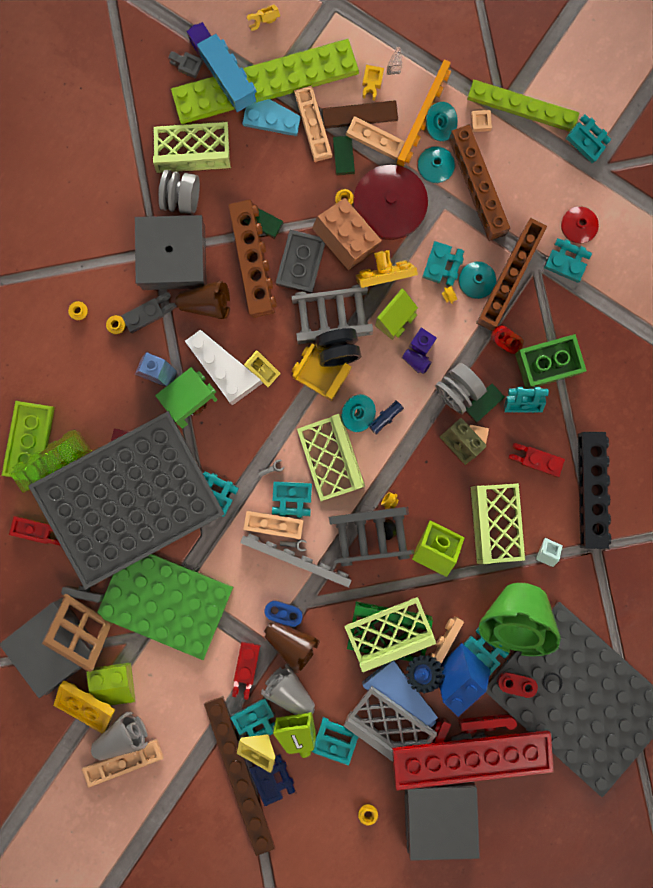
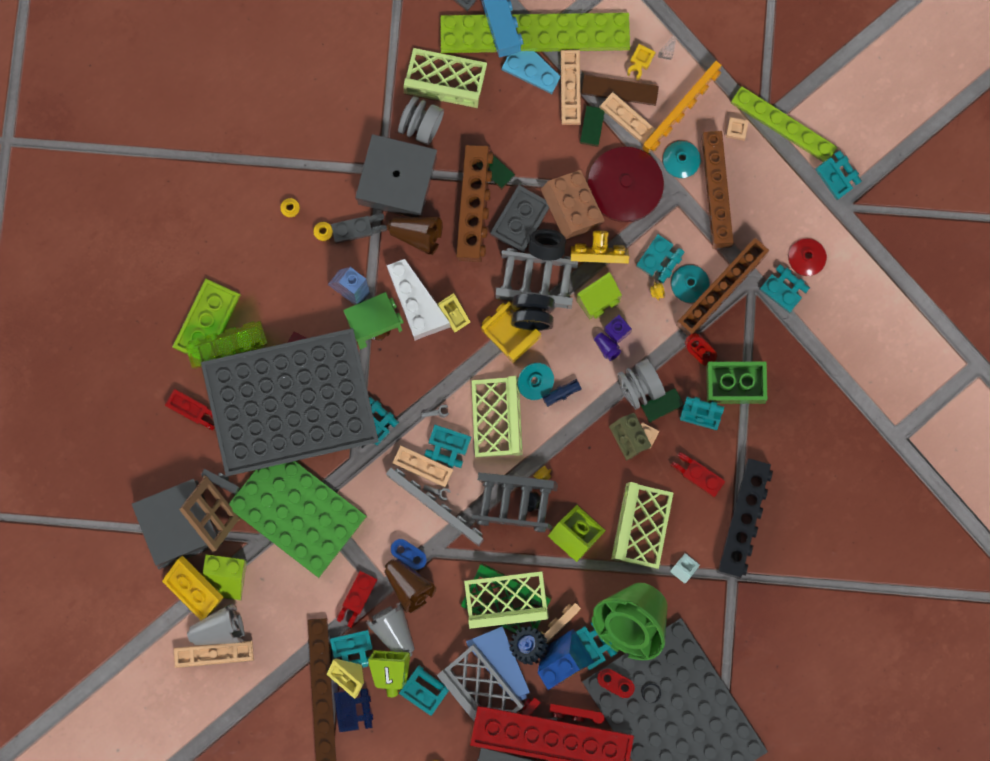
camera: 15 degrees right, 5 degrees down
(333, 279) = (547, 252): none -> black tyre
(344, 193) = (581, 163): yellow plate -> none
(447, 121) = (704, 121): teal dish -> none

